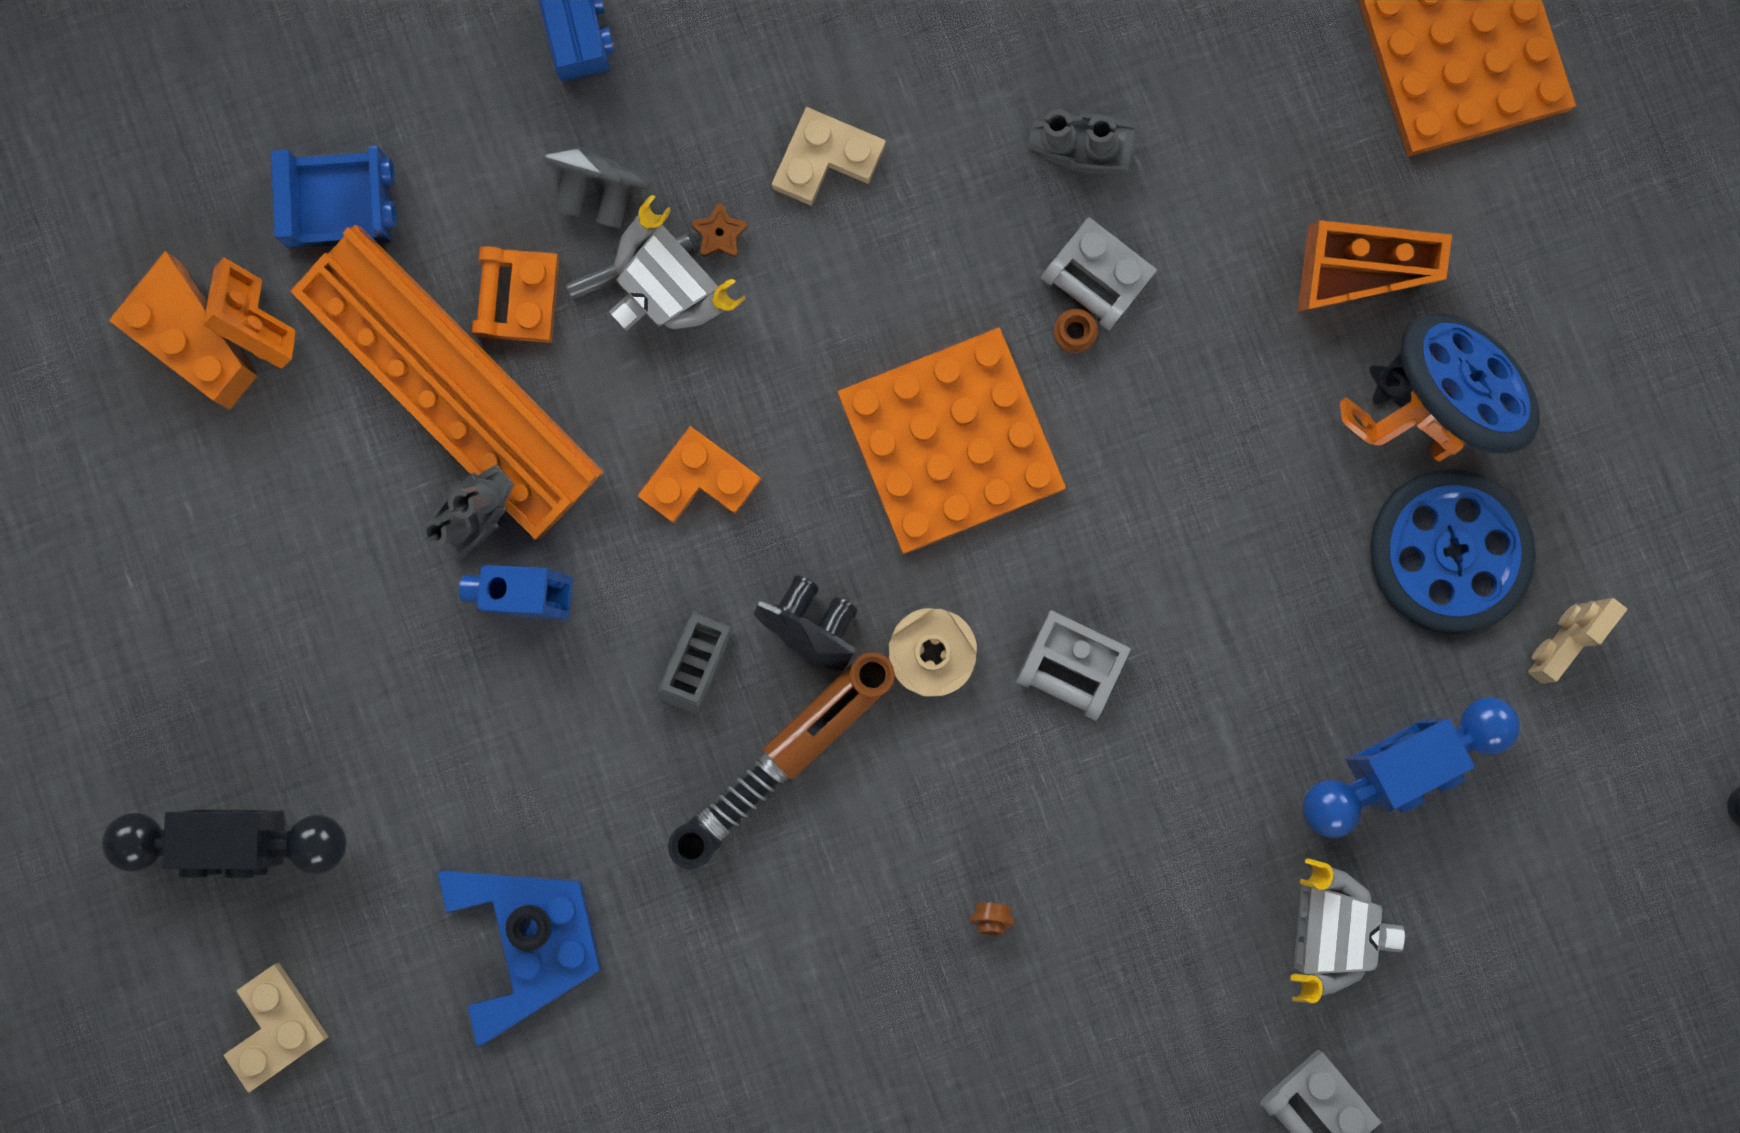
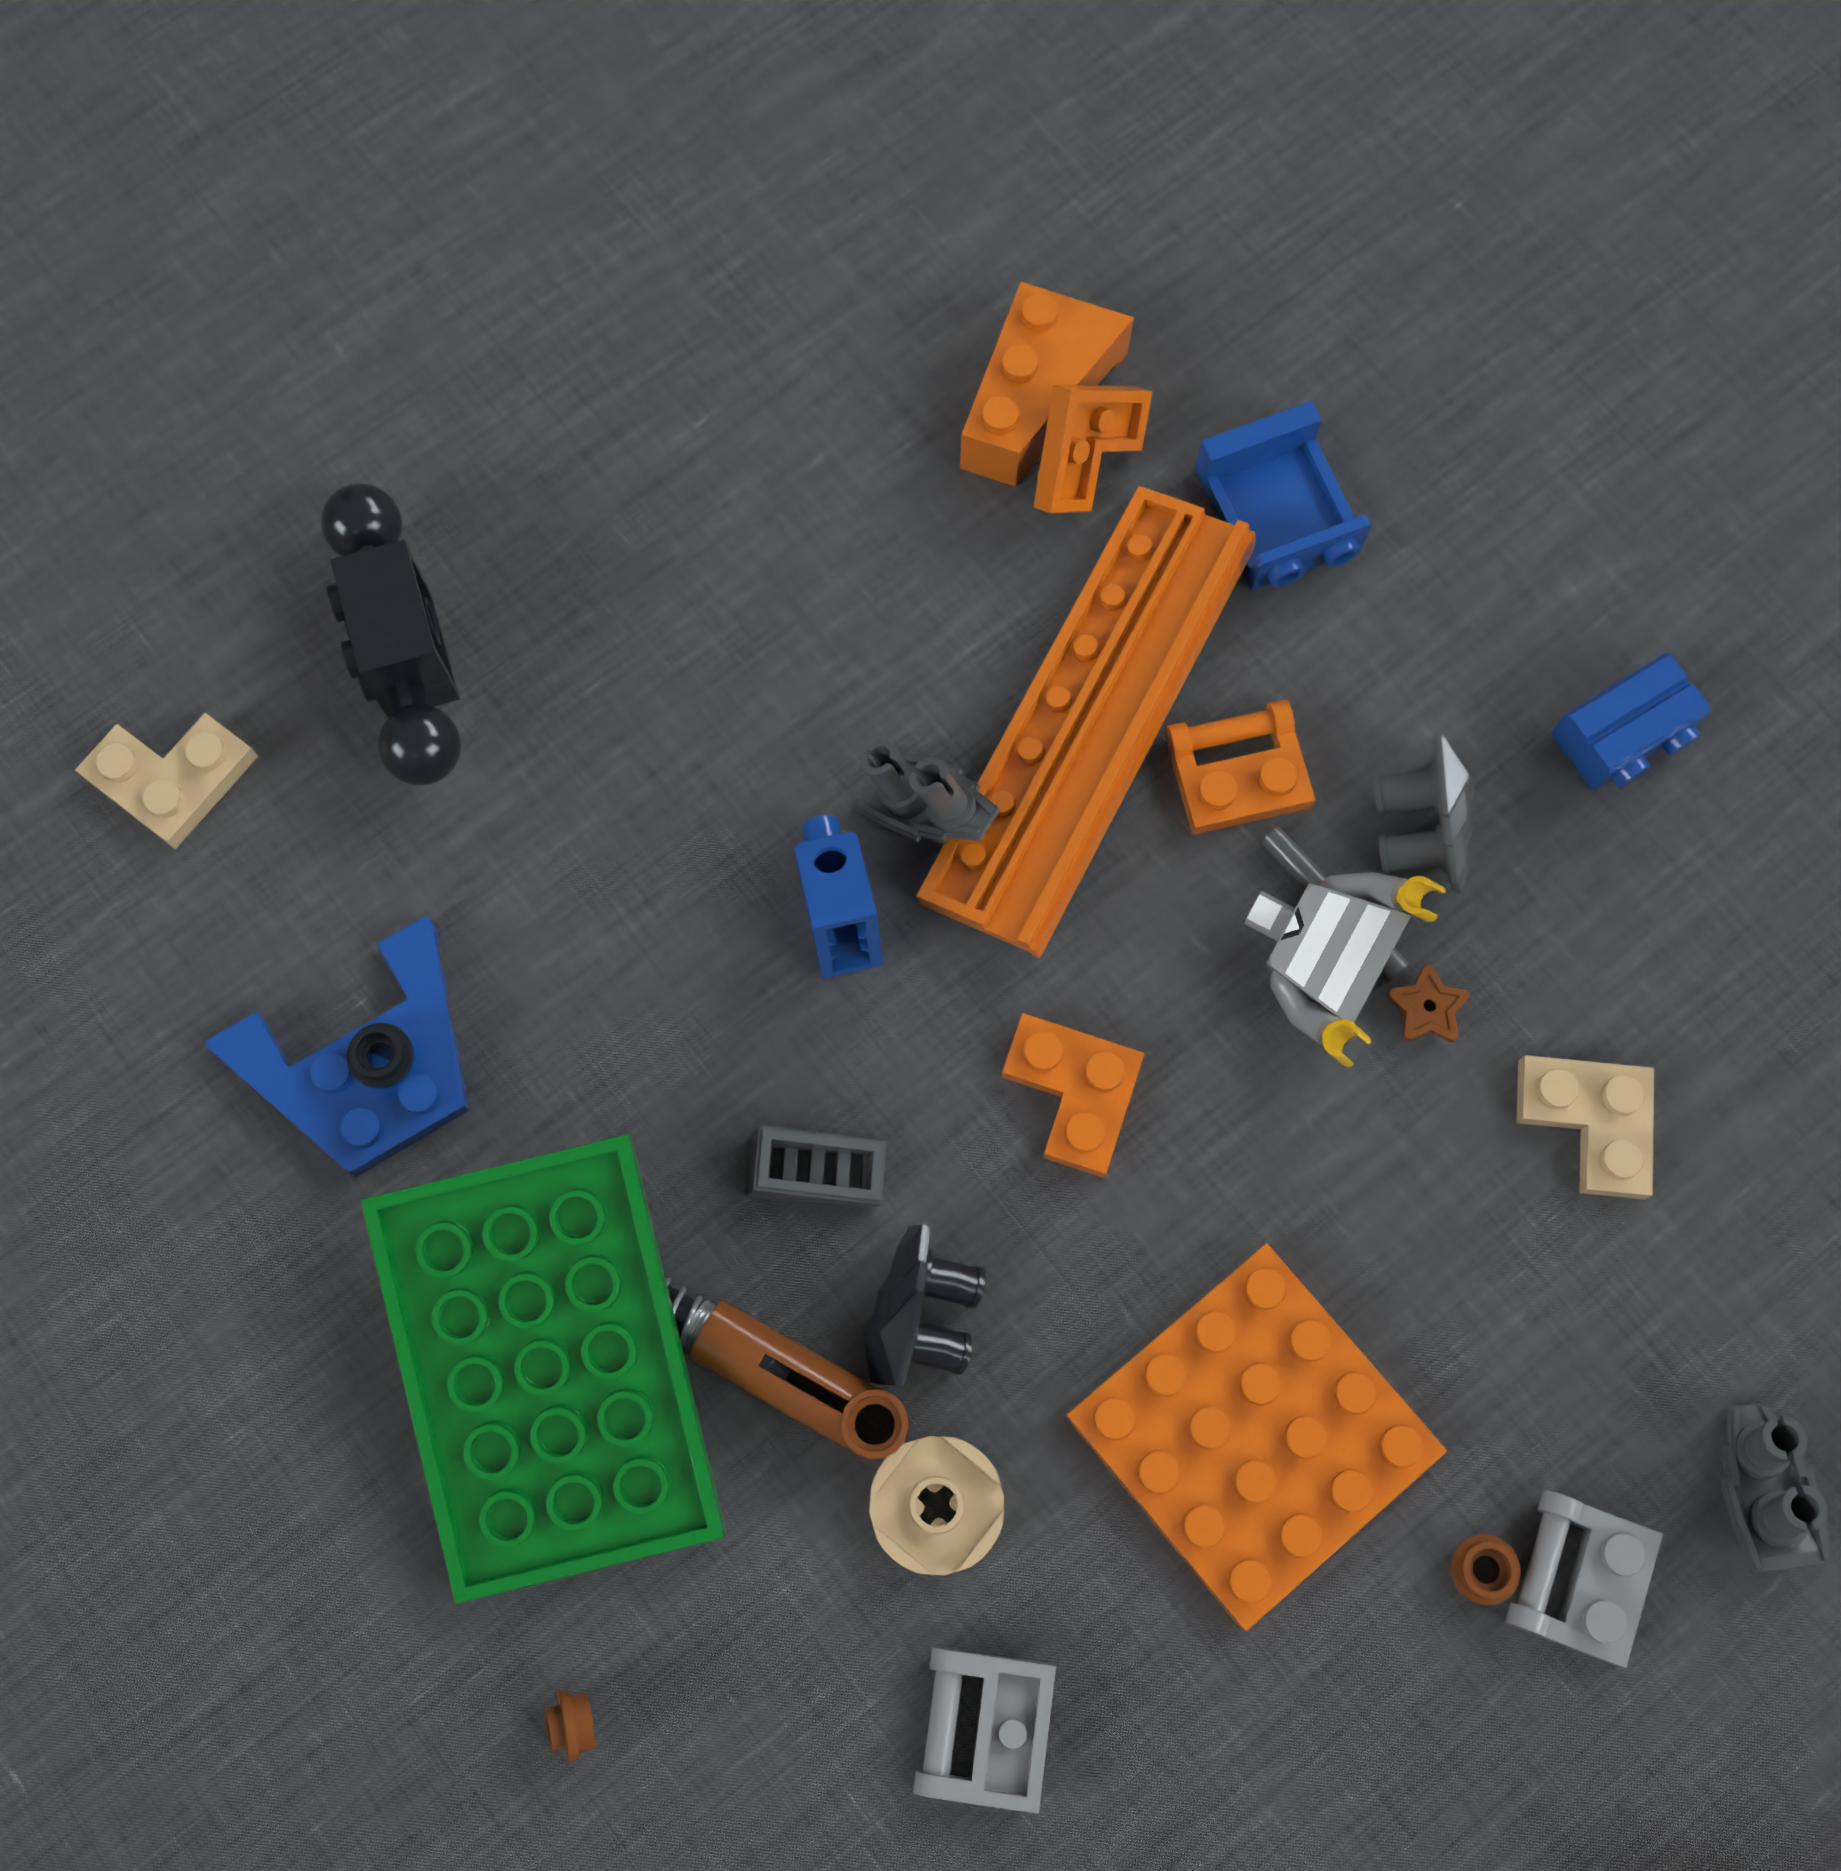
camera: 80 degrees right, 10 degrees down
(767, 874) = (543, 1368): none -> green plate

